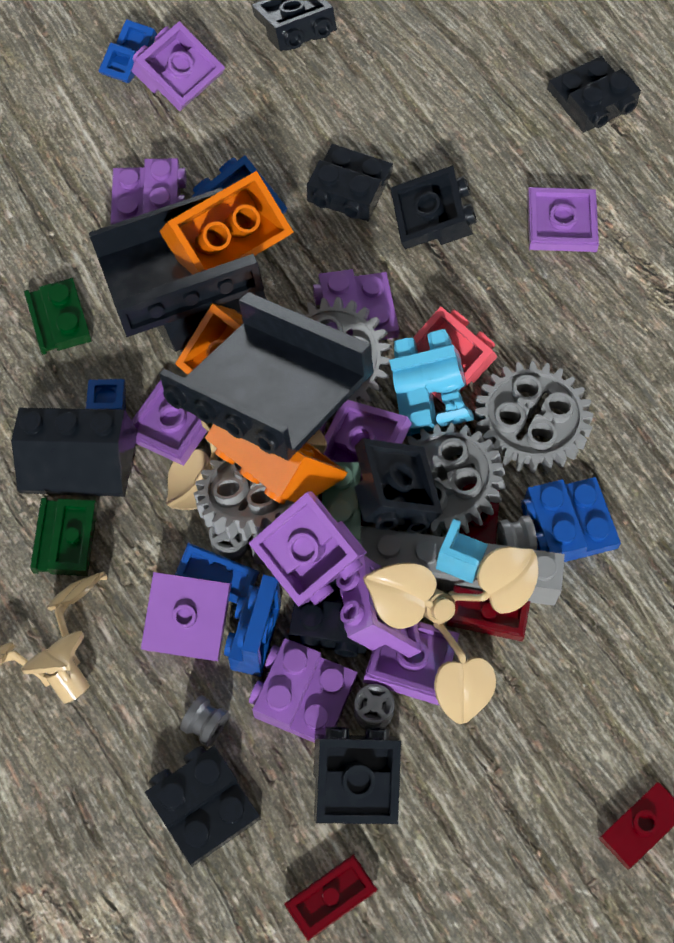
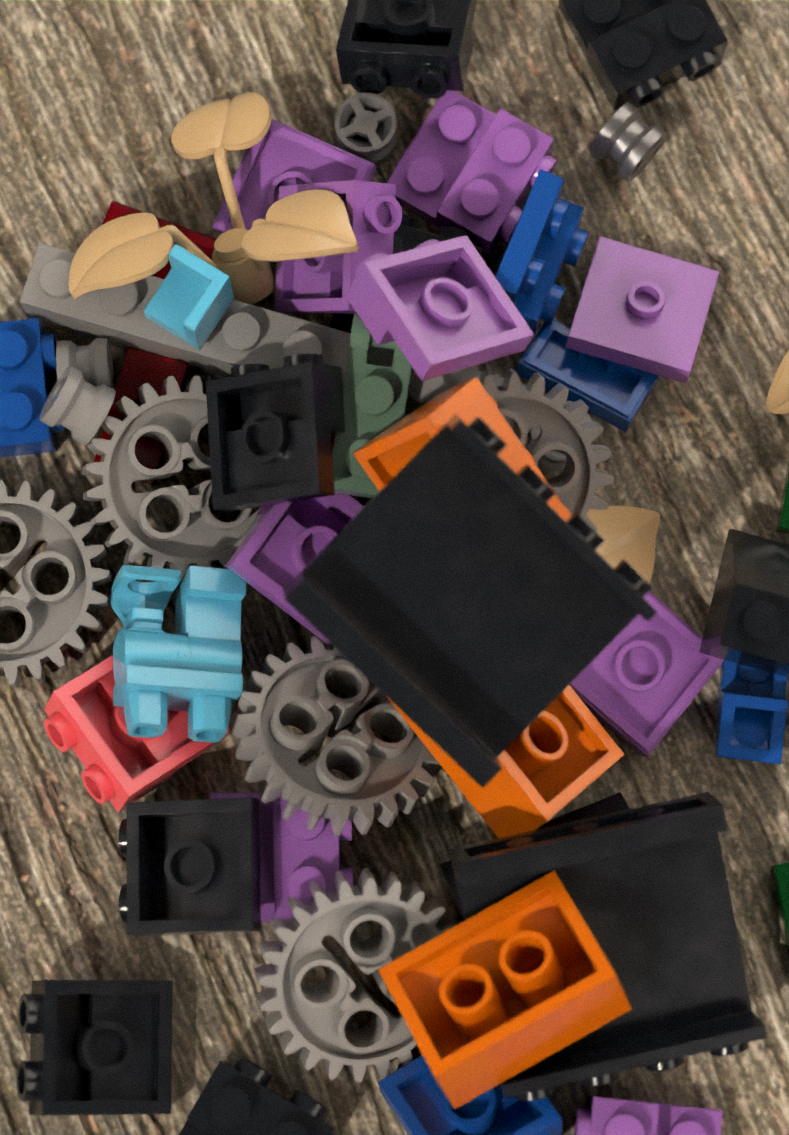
camera: 170 degrees left, 15 degrees up
(311, 253) = (317, 1014): none -> light grey gear
(400, 285) = (191, 867): none -> black plate
(515, 500) = (77, 405): none -> light grey wheel

